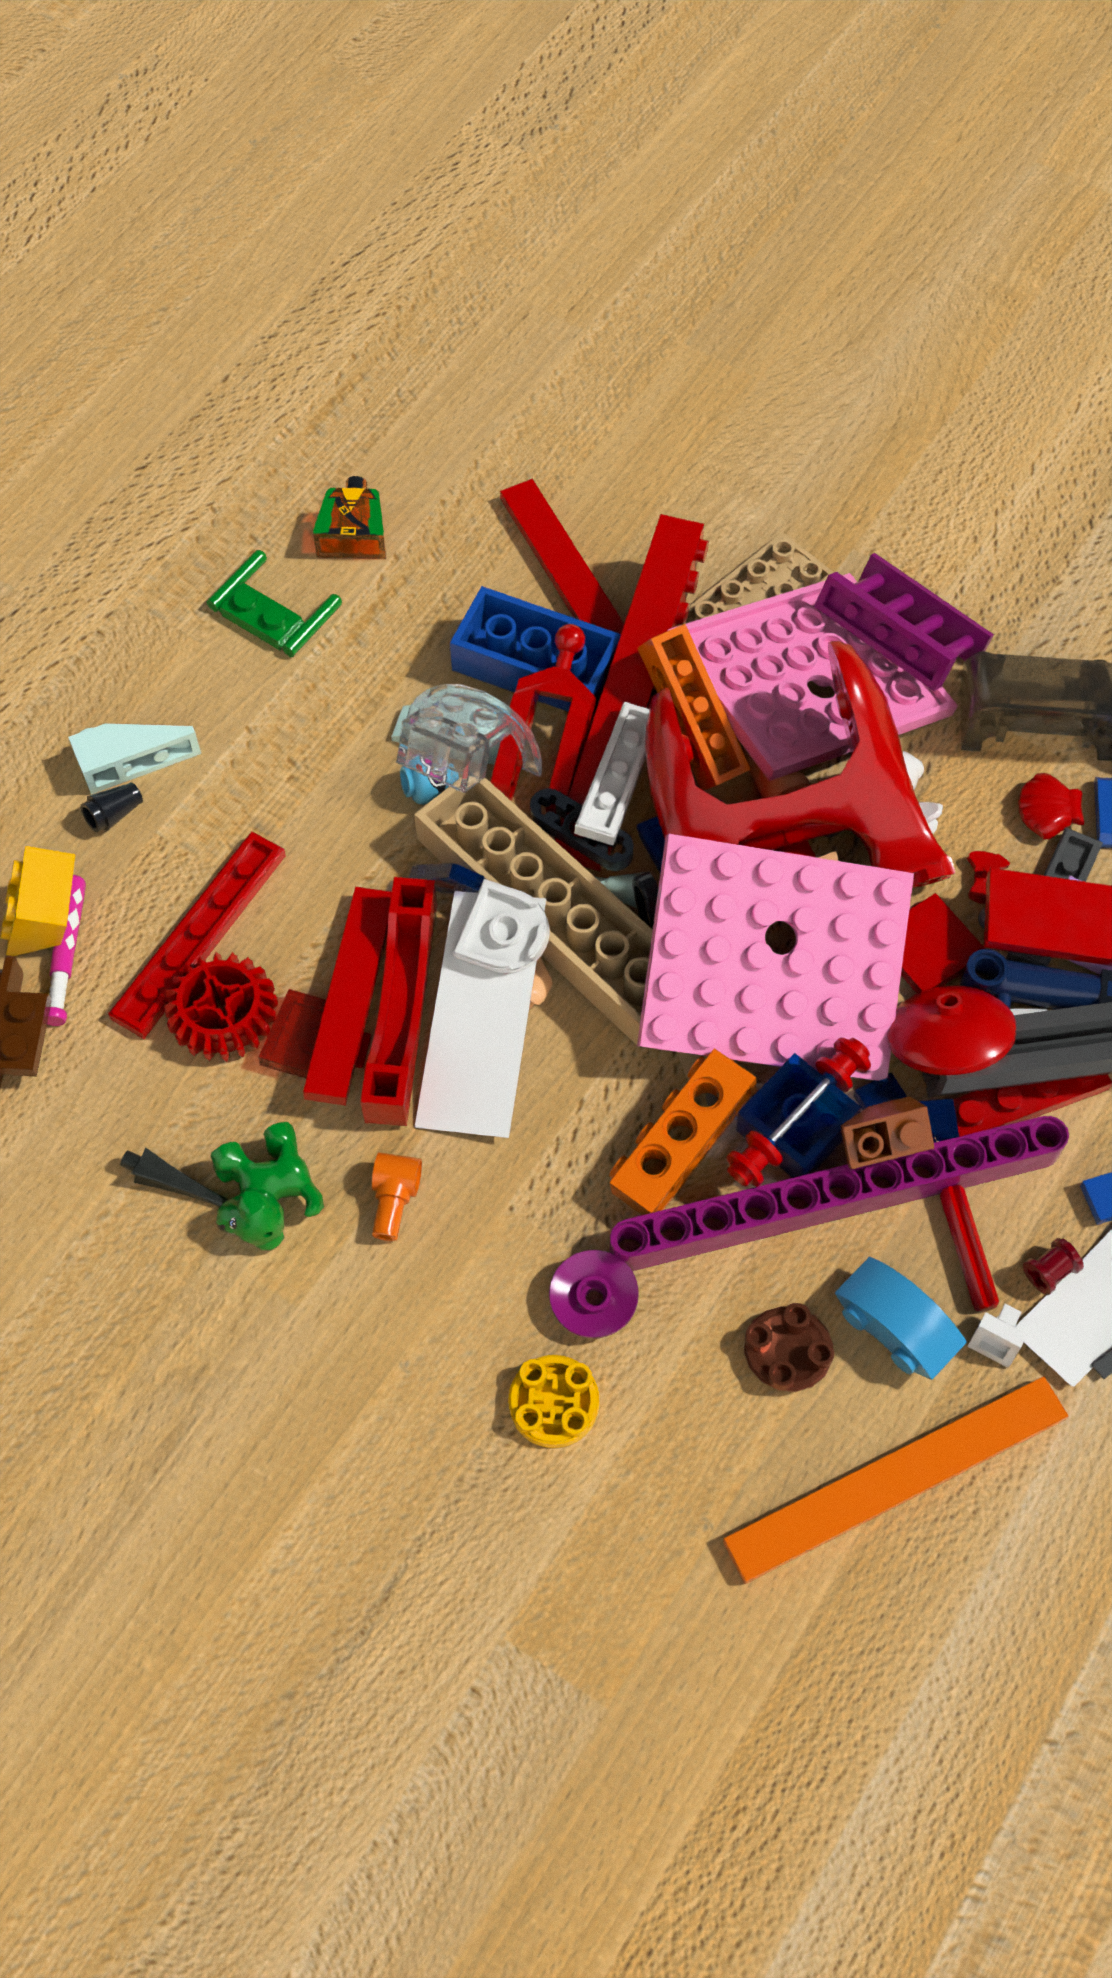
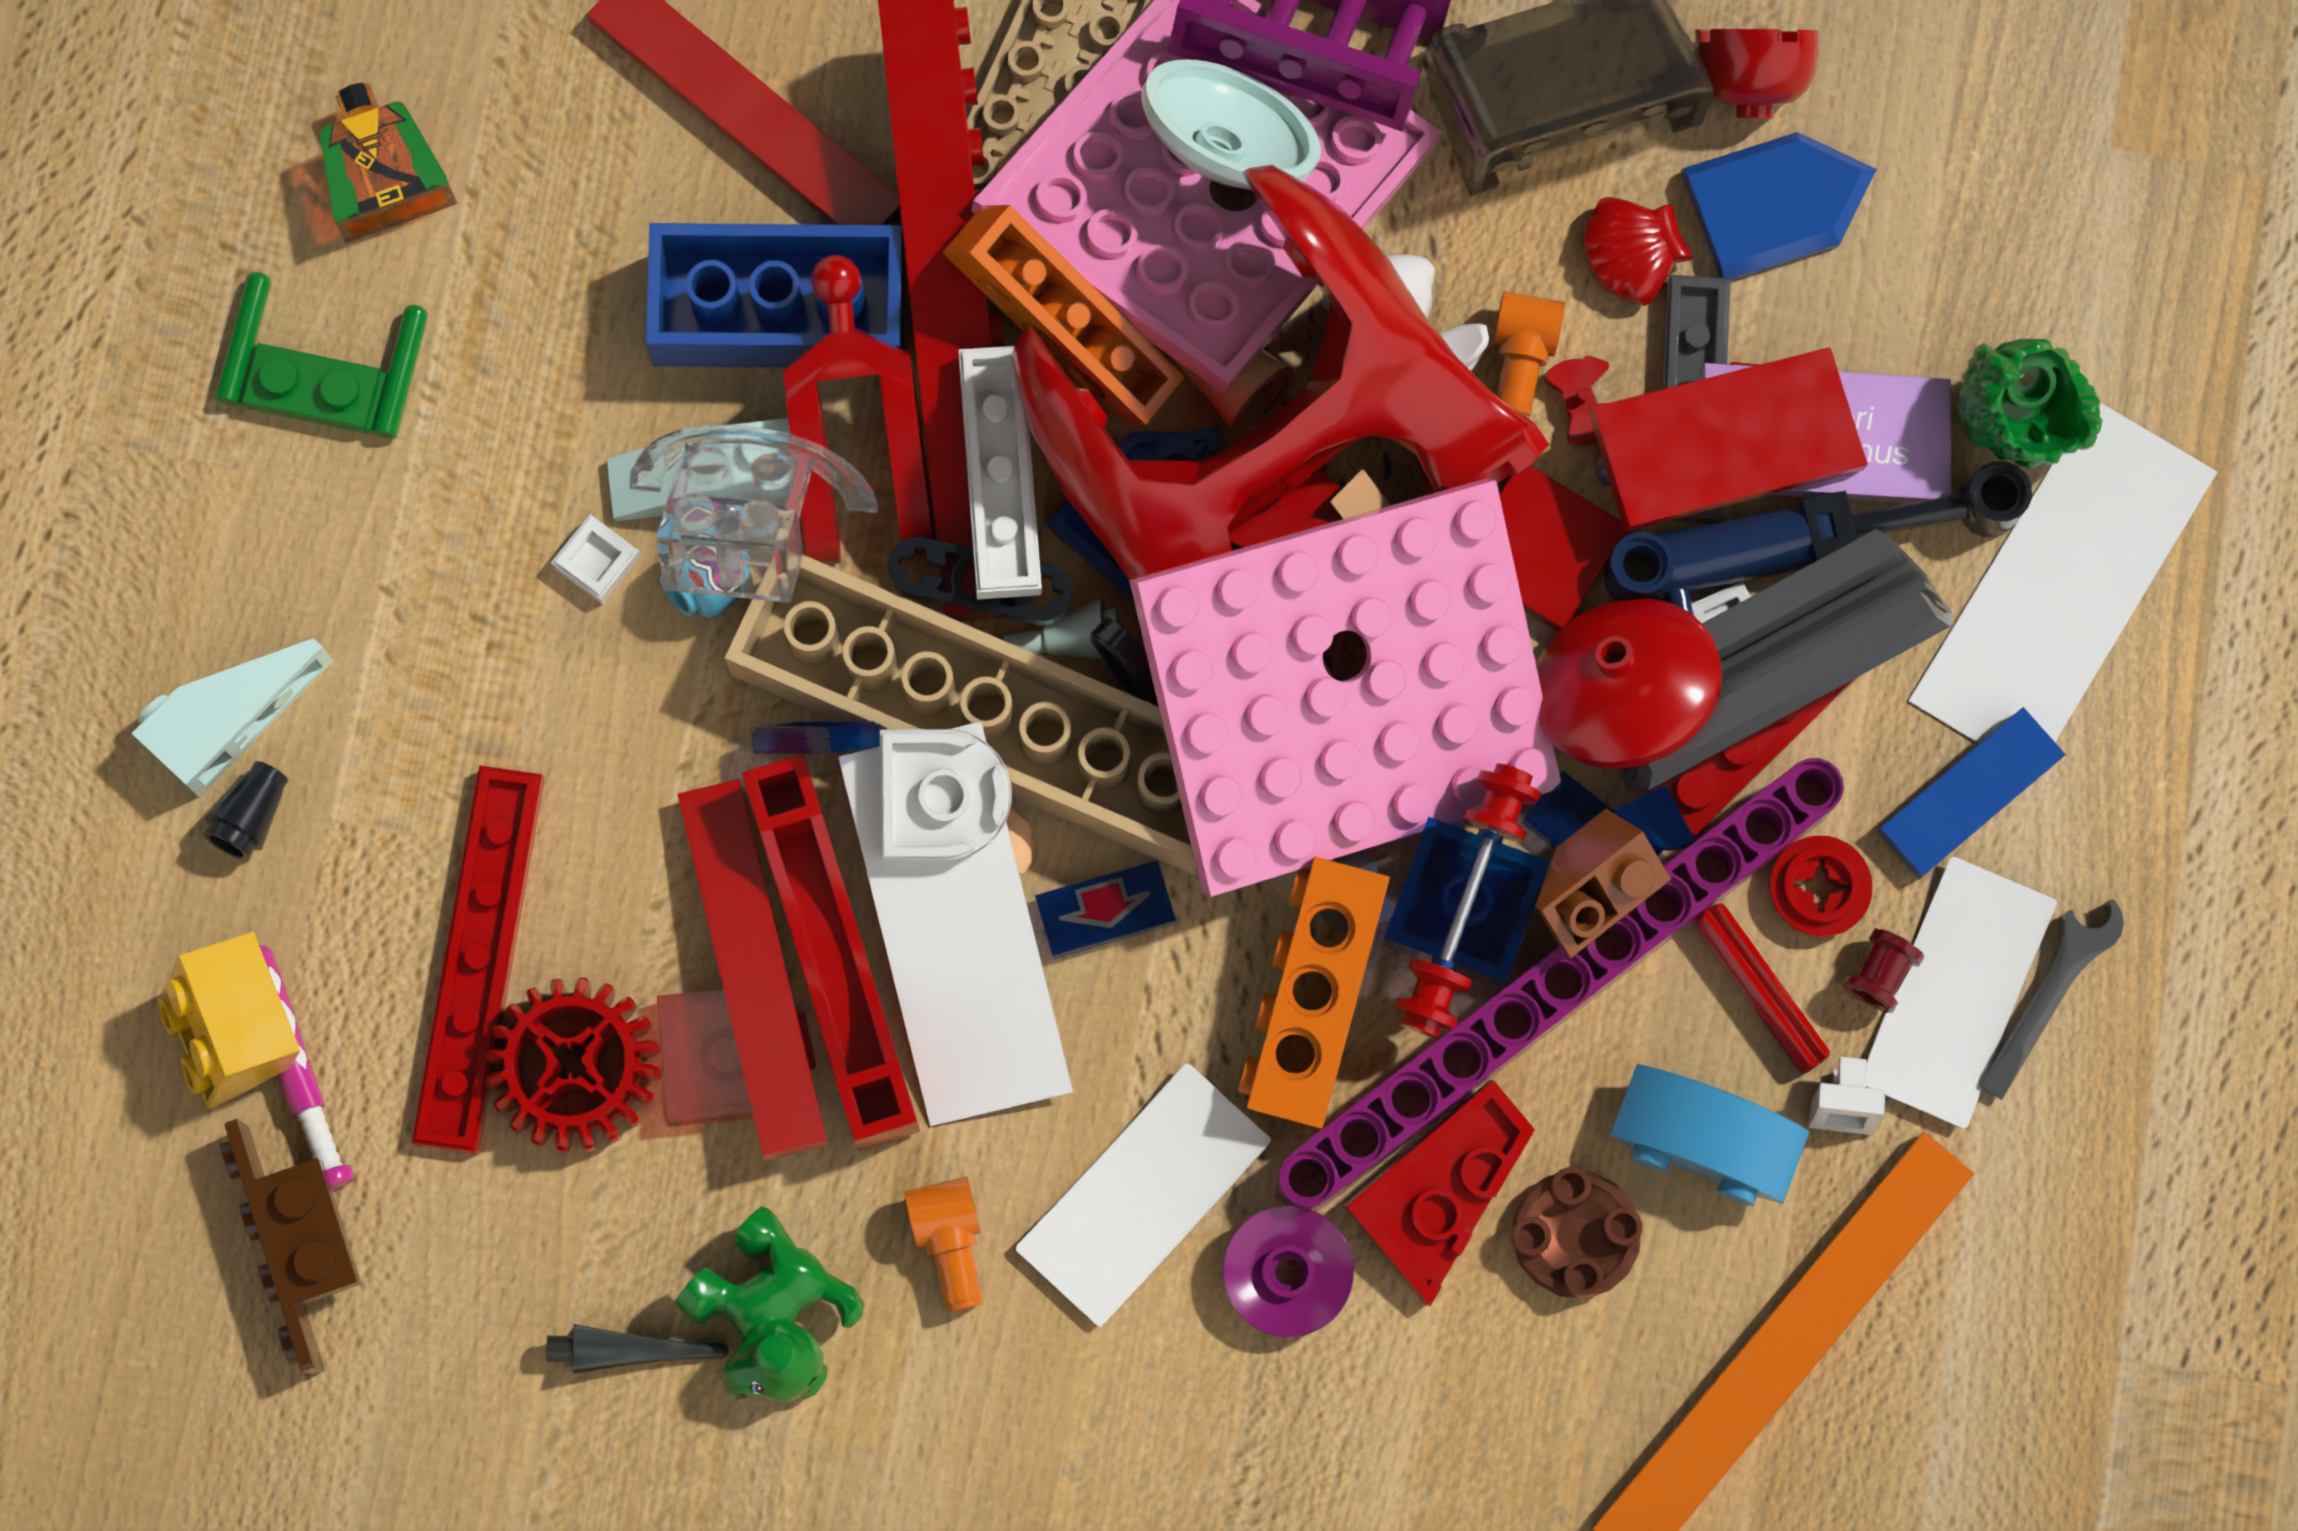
camera: 25 degrees left, 15 degrees up
(371, 753) = (596, 559): none -> white tile
(525, 1217) = (1143, 1195): none -> white sticker
(554, 1401) = (1294, 1437): yellow tile -> none
(576, 1045) = (1105, 909): none -> clear blue tile
(713, 1284) = (1439, 1188): none -> red wing
(814, 627) = (1227, 122): none -> light aqua dish
(965, 827) = (1526, 336): none -> orange pin
(1048, 1197) = (1842, 867): none -> red gear

